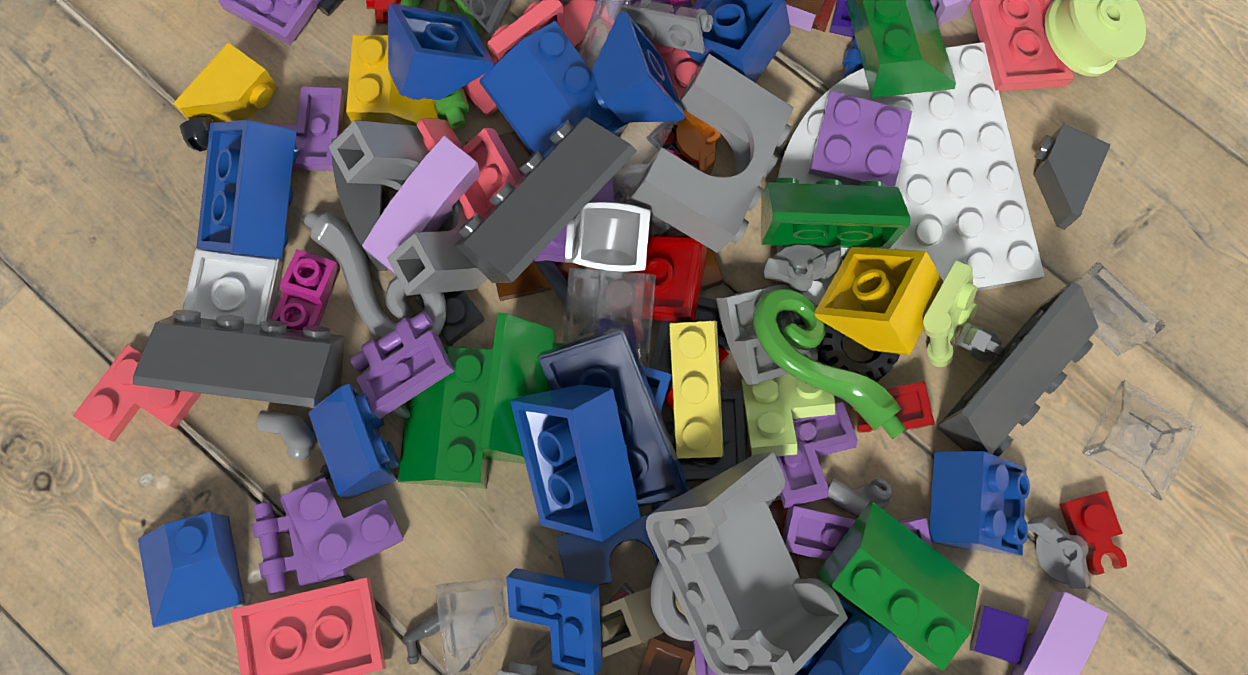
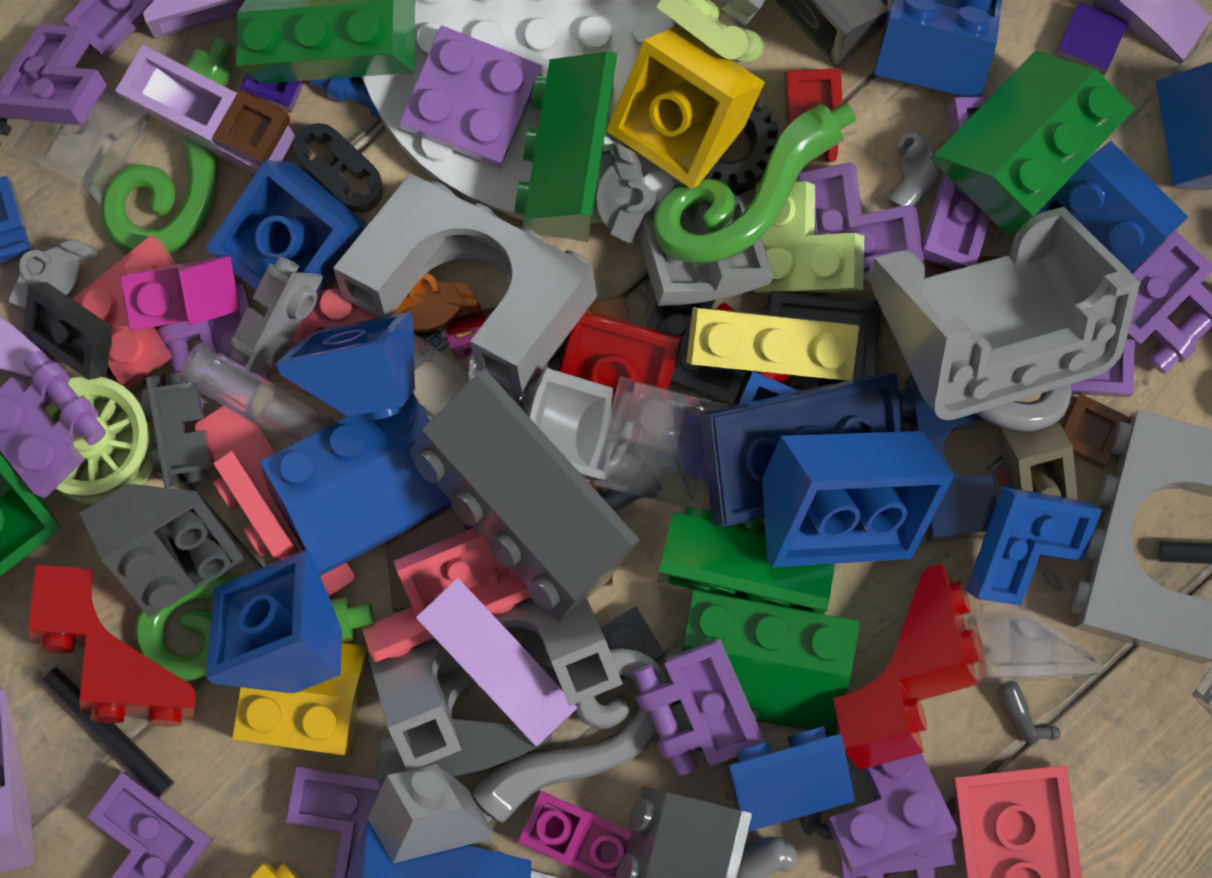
camera: 80 degrees left, 5 degrees up
(303, 173) = (426, 814): none -> light grey slope
(457, 543) = (929, 660): none -> red arch
(785, 61) = (347, 159): none -> black beam

